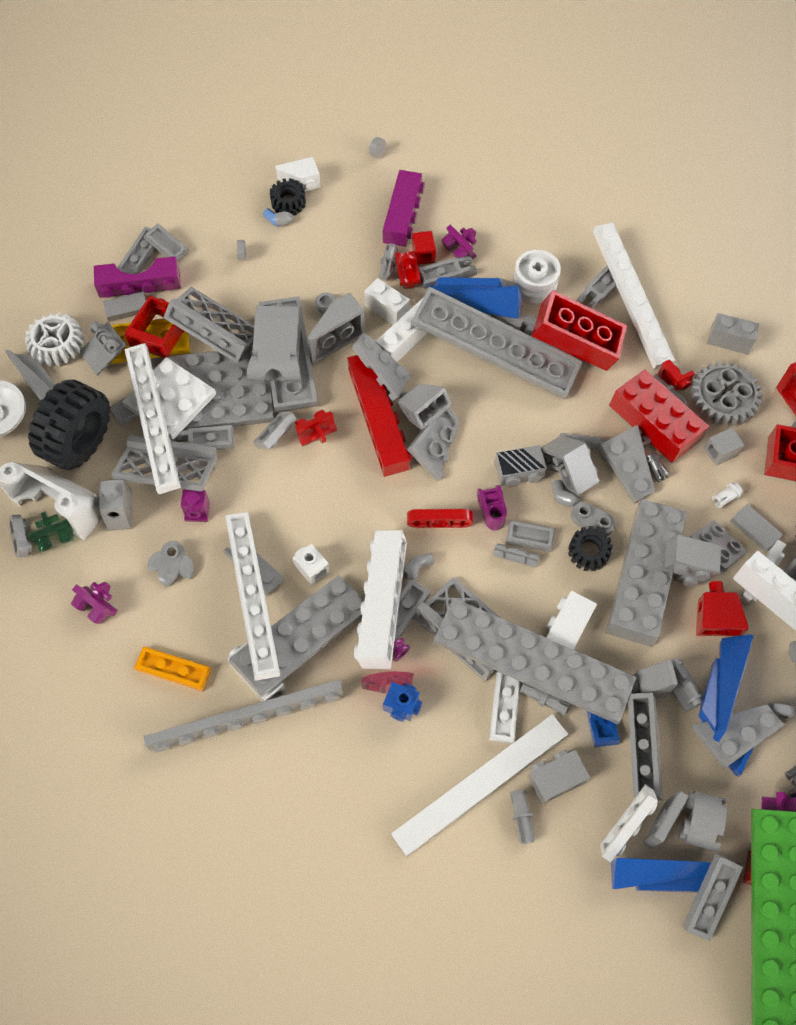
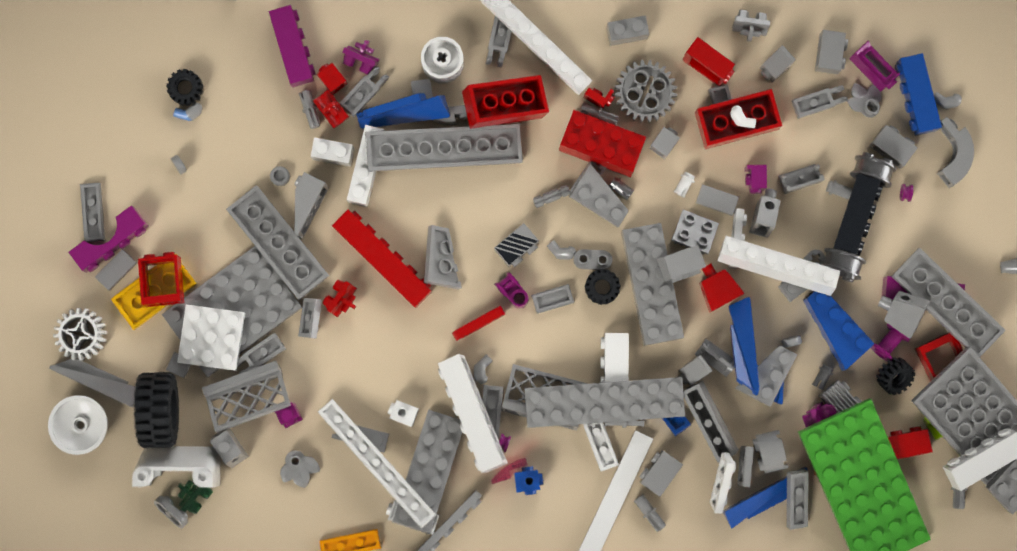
camera: 30 degrees left, 20 degrees up
(86, 596) = (263, 526): magenta hips -> none
(102, 347) = (126, 321): light grey hinge -> none
(152, 419) = (212, 365): white tile -> none
(165, 242) = (110, 192): light grey tile -> none
(203, 327) = (205, 266): light grey fence -> none
(275, 344) = (268, 245): light grey piece -> none
(302, 170) = (182, 57): white slope -> none
(386, 368) = (364, 217): light grey wing -> none
(424, 404) = (415, 236): light grey torso -> none
(516, 555) = (550, 321): light grey axle -> none
(572, 462) = (555, 224): light grey brick -> none

